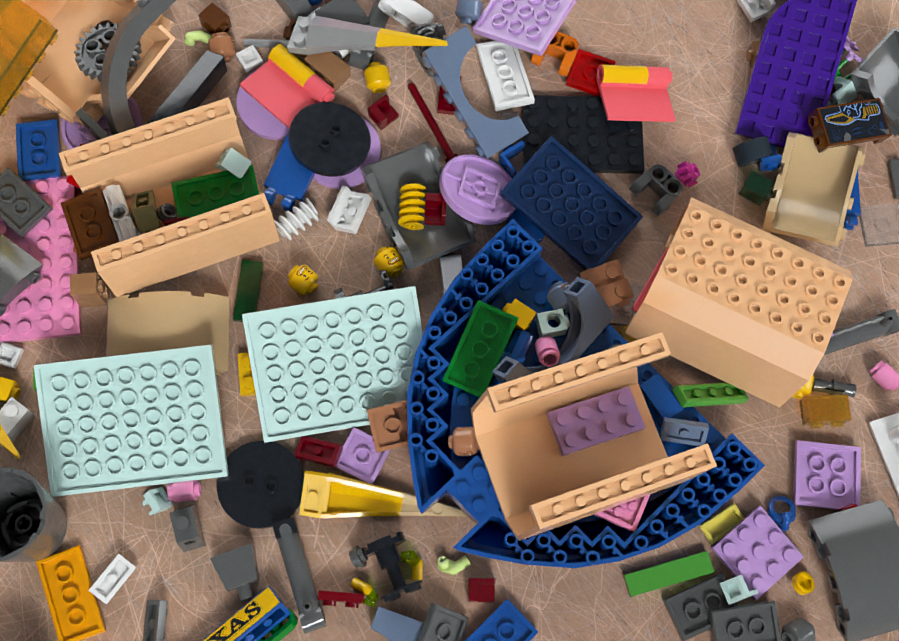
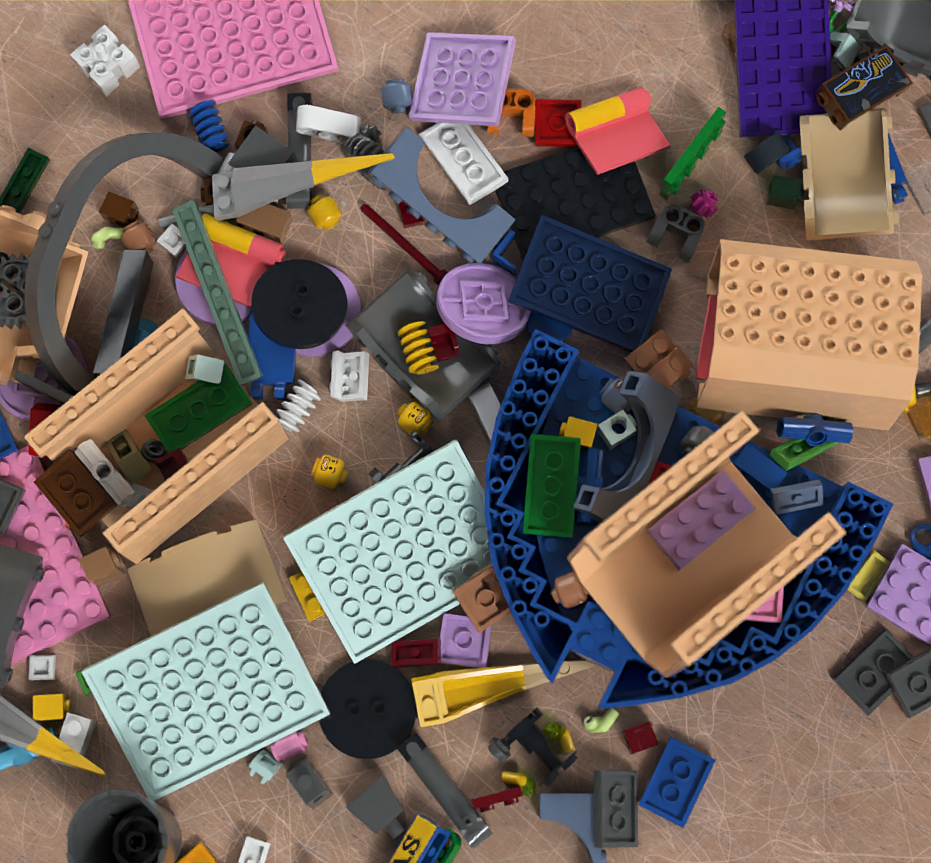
camera: 10 degrees left, 5 degrees up
(248, 288) = (273, 504): dark green tile -> none
(266, 107) = (217, 293): none -> sand green plate
(382, 112) = (345, 251): dark red panel -> none
(547, 351) = (623, 461): bright pink brick -> none
(668, 573) = (829, 649): bright green tile -> none
(693, 130) = (696, 150): none -> green plate
(717, 383) = (814, 429): none -> blue piece
(736, 589) = (906, 642): light aqua panel -> none

